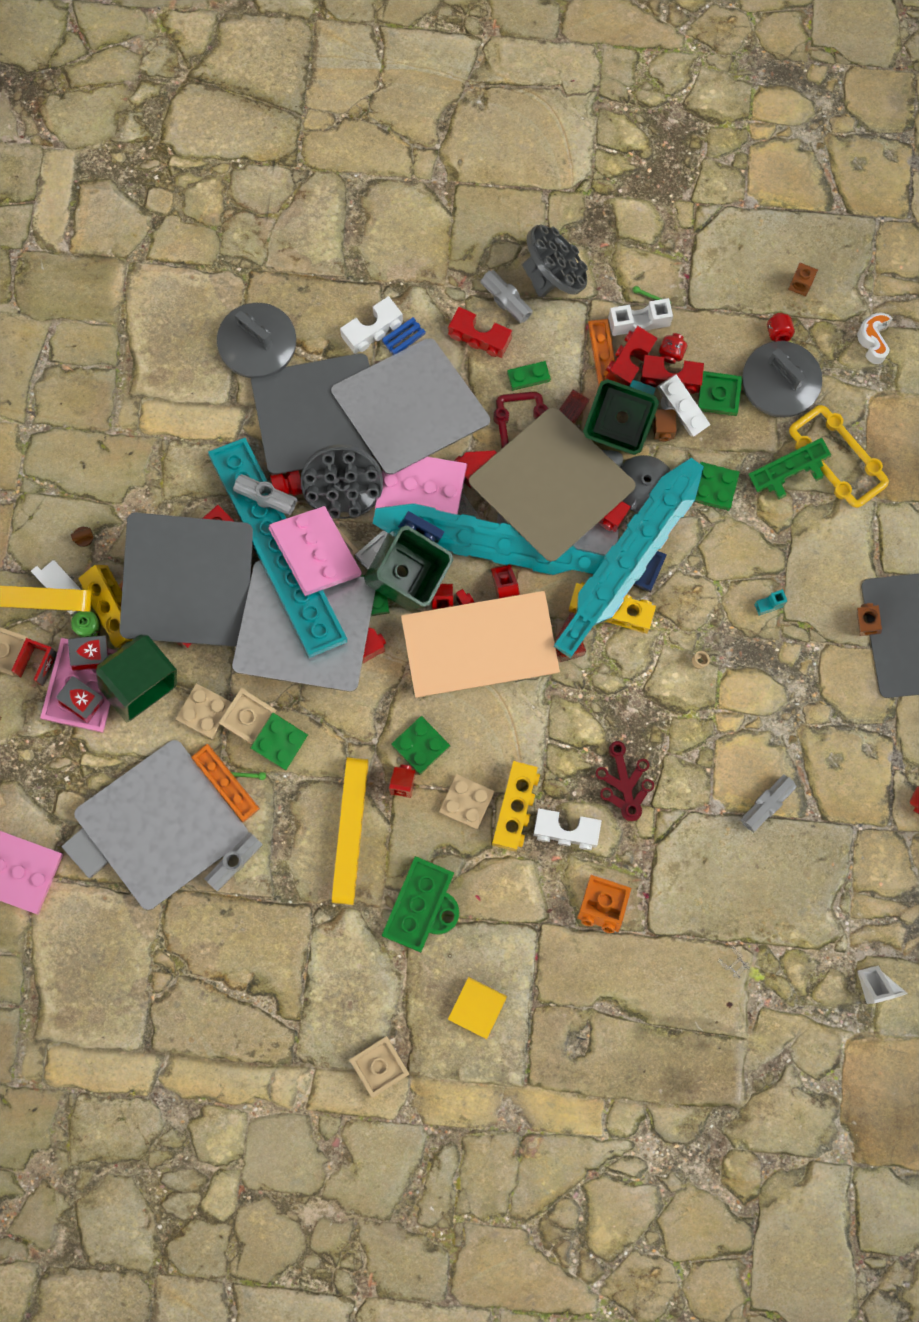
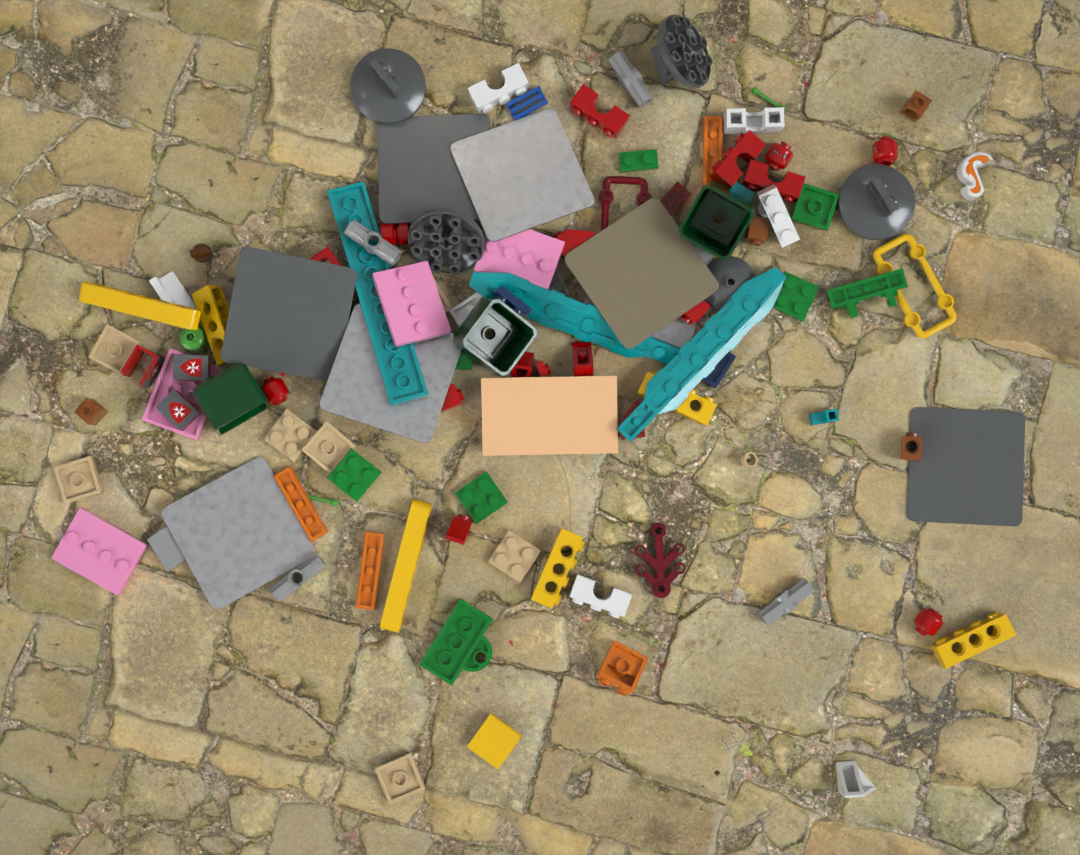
camera: 10 degrees right, 10 degrees up
(184, 664) = (275, 390): none -> red head
(311, 842) = (370, 570): none -> orange tile

